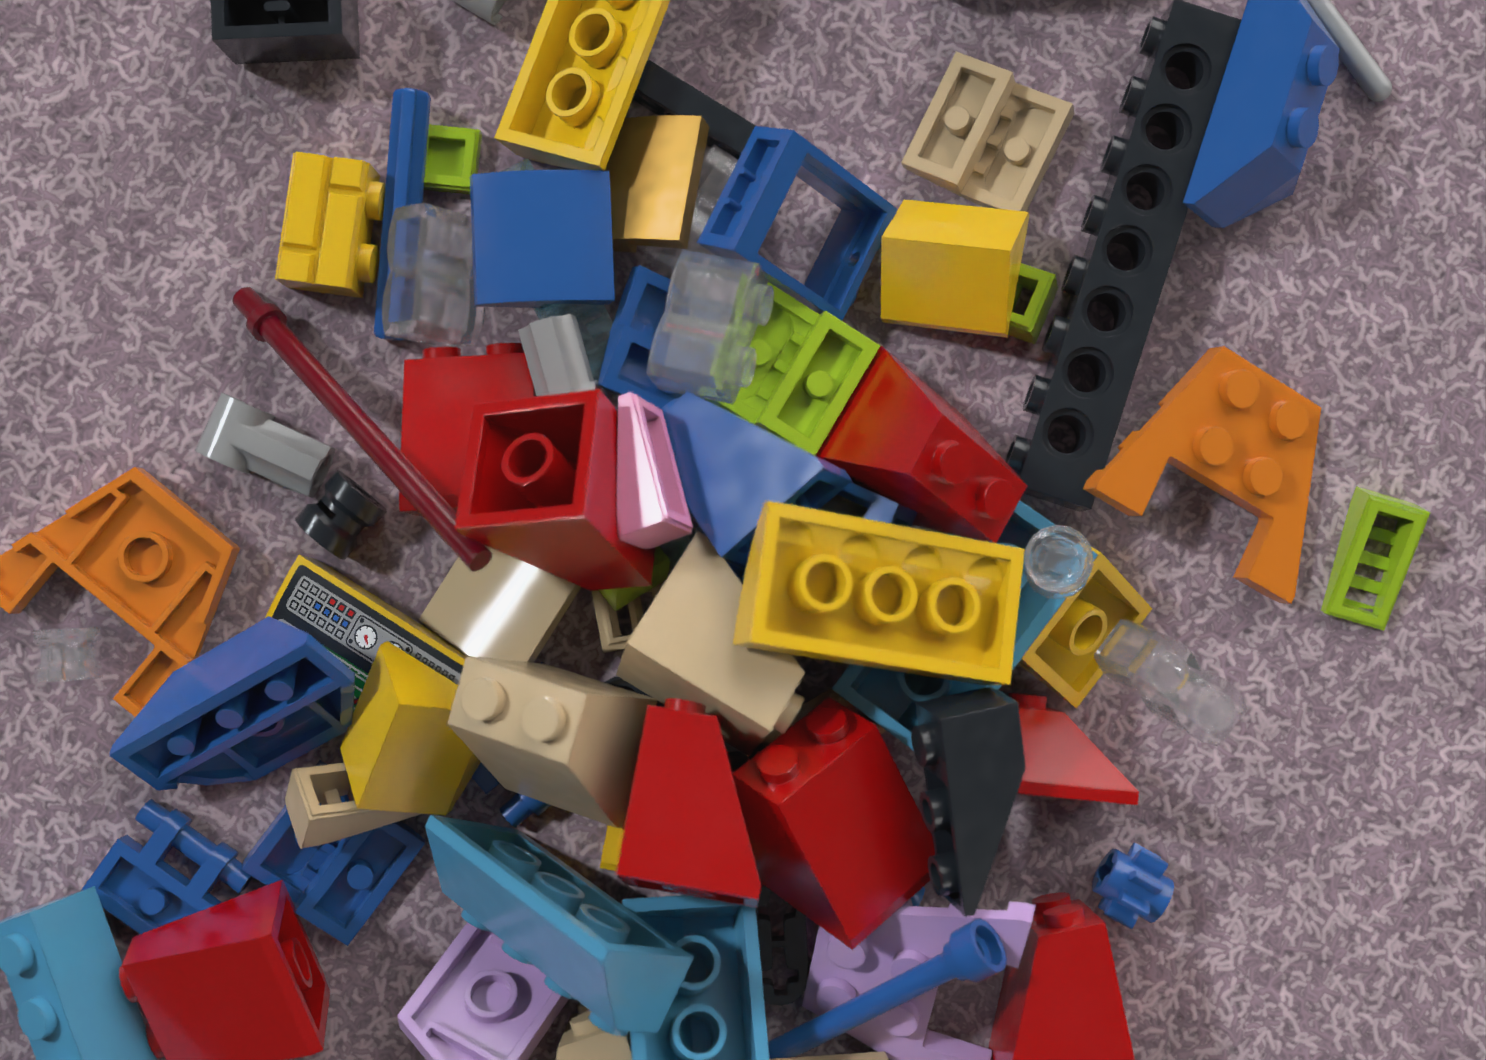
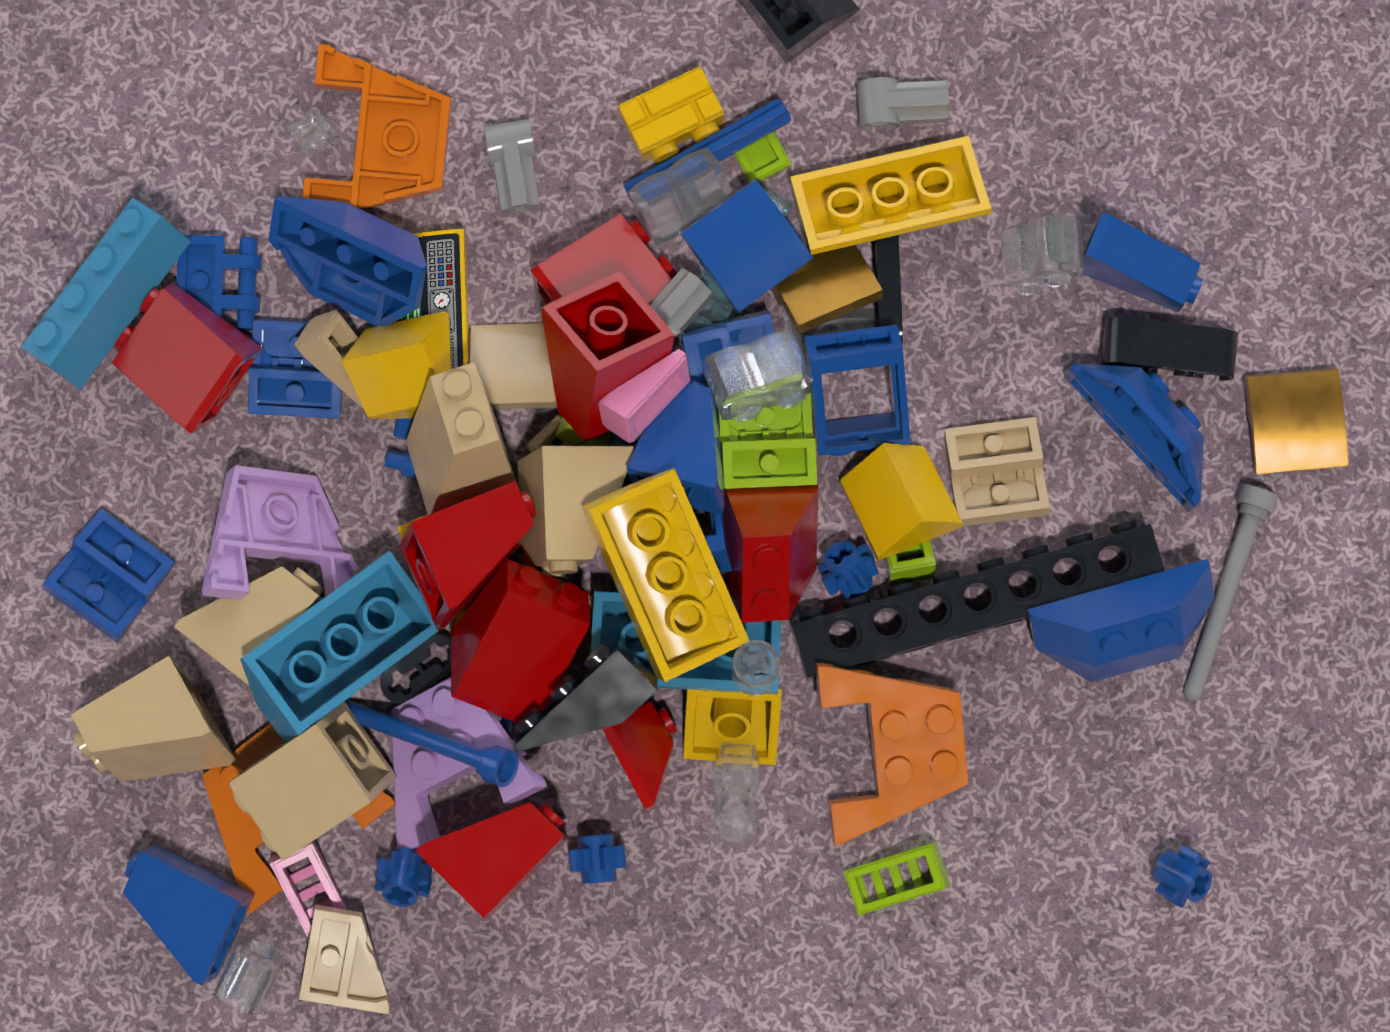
camera: 60 degrees right, 5 degrees down
(268, 325) = (588, 117): dark red bar -> none
(340, 515) = (502, 237): black wheel -> none
(559, 924) = (351, 518): dark azure slope -> none
(992, 378) = (848, 569): none -> blue gear

